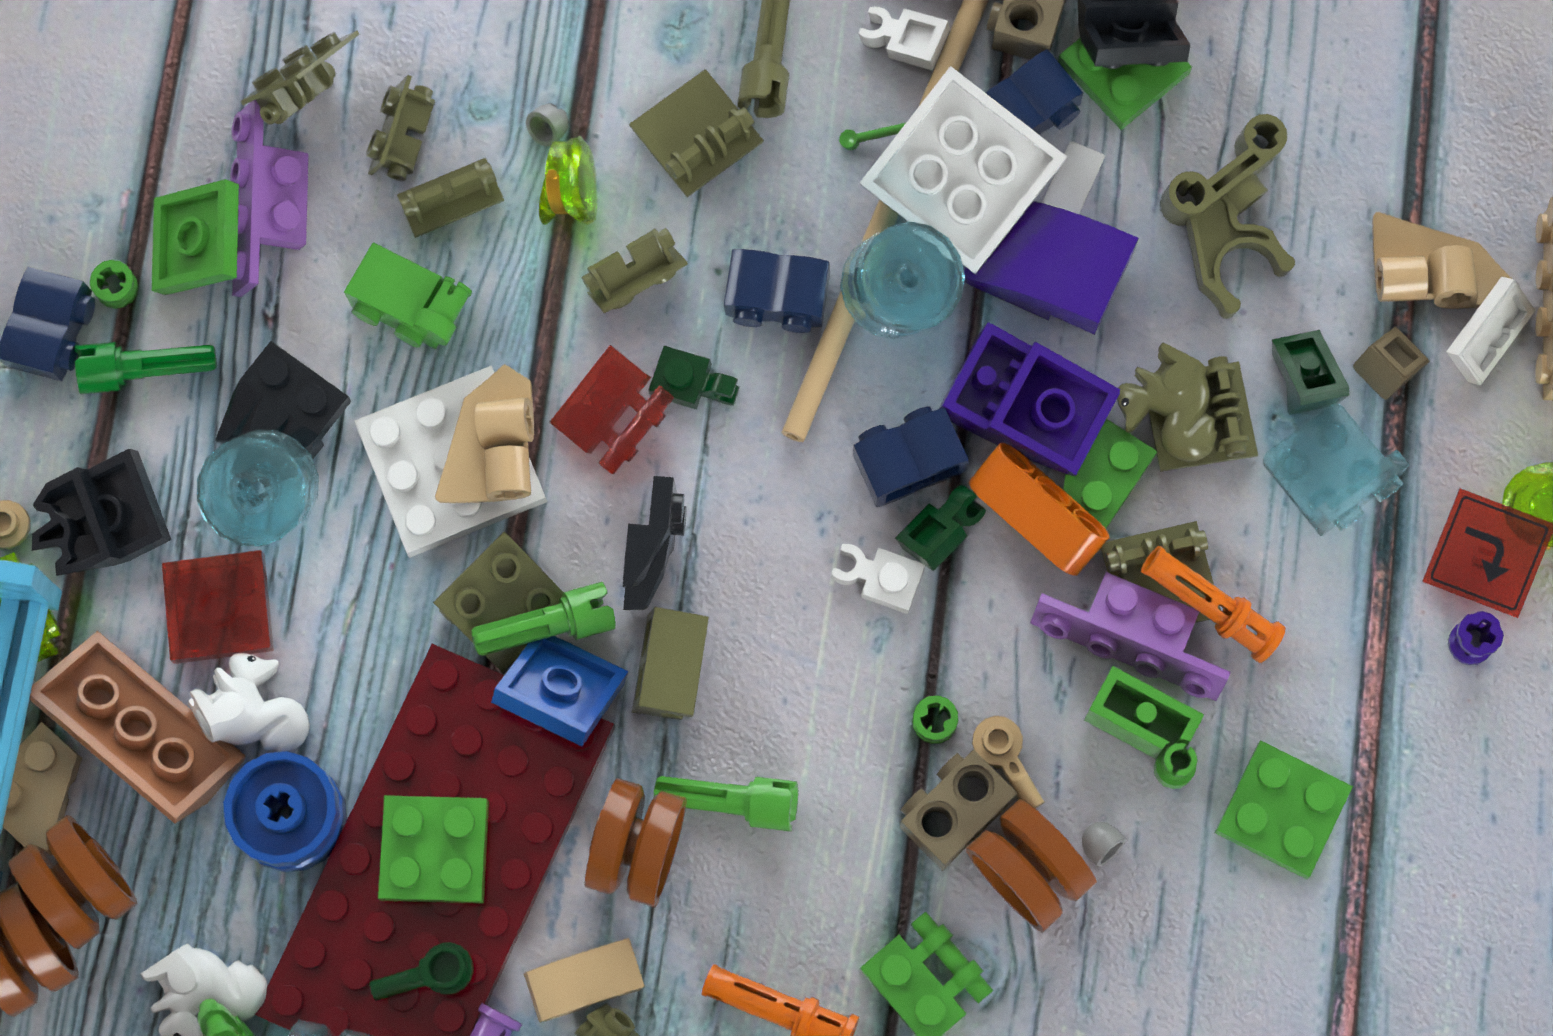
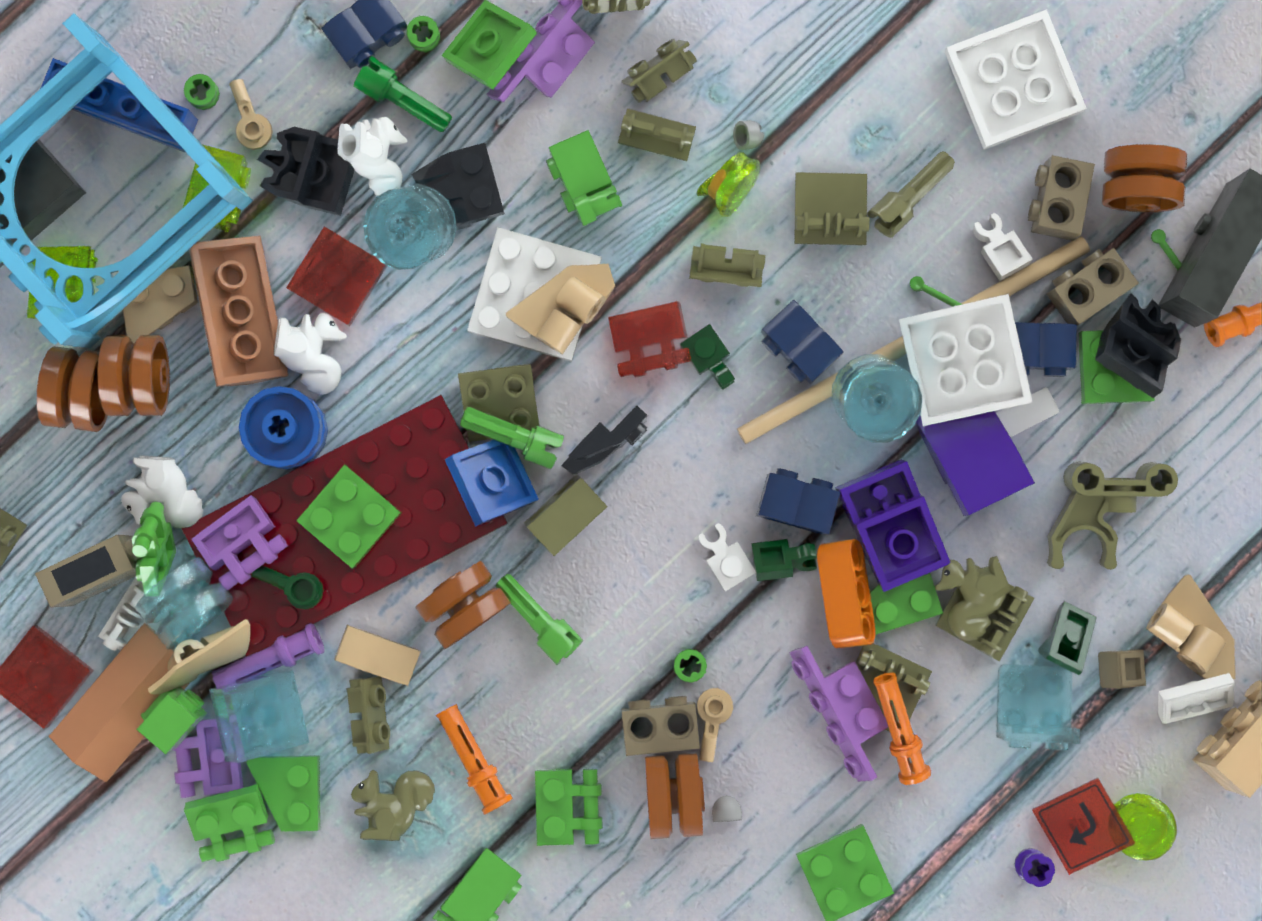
camera: 30 degrees right, 10 degrees up
(150, 444) = (368, 152): none -> white animal
(319, 967) = (232, 535): none -> medium lavender plate
(1148, 723) = (807, 767): bright green hinge -> none

